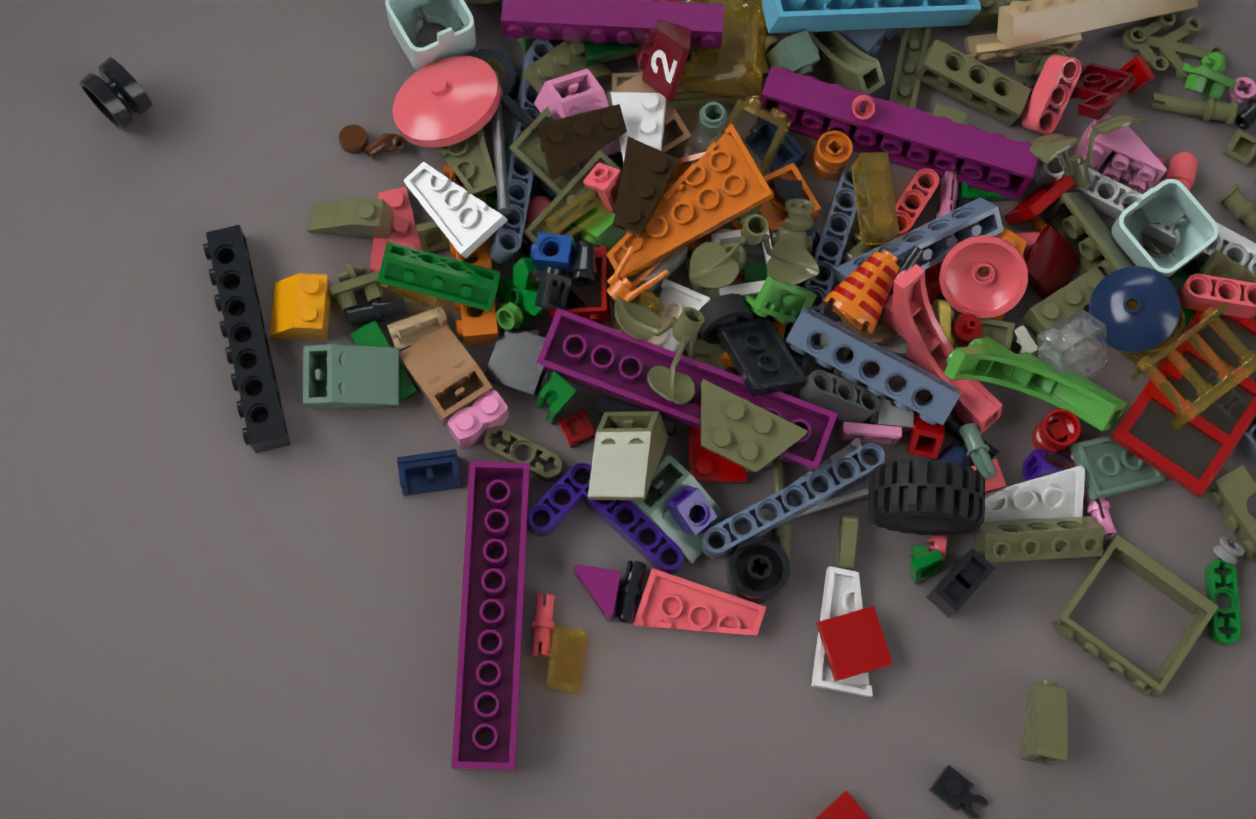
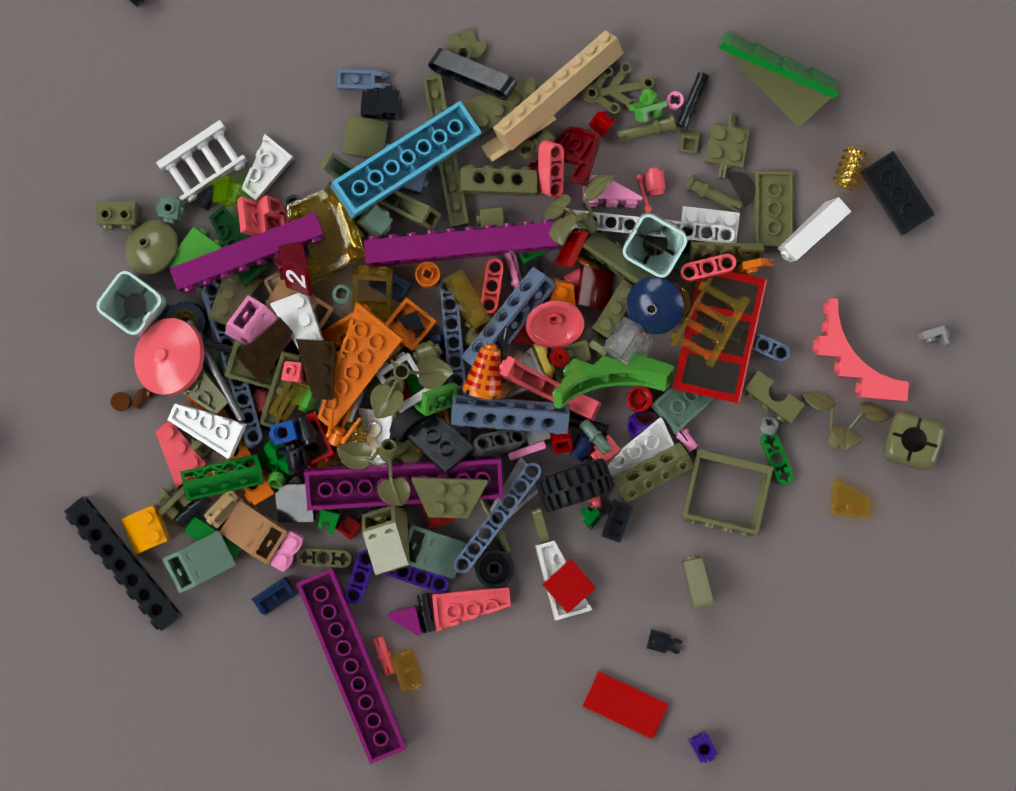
camera: 20 degrees left, 15 degrees up
(352, 217) = (147, 459): olive slope -> none
(680, 506) = (434, 549): dark purple brick -> none
(799, 214) = (424, 336): olive wheel -> none
(869, 107) = (434, 251): coral hinge -> none

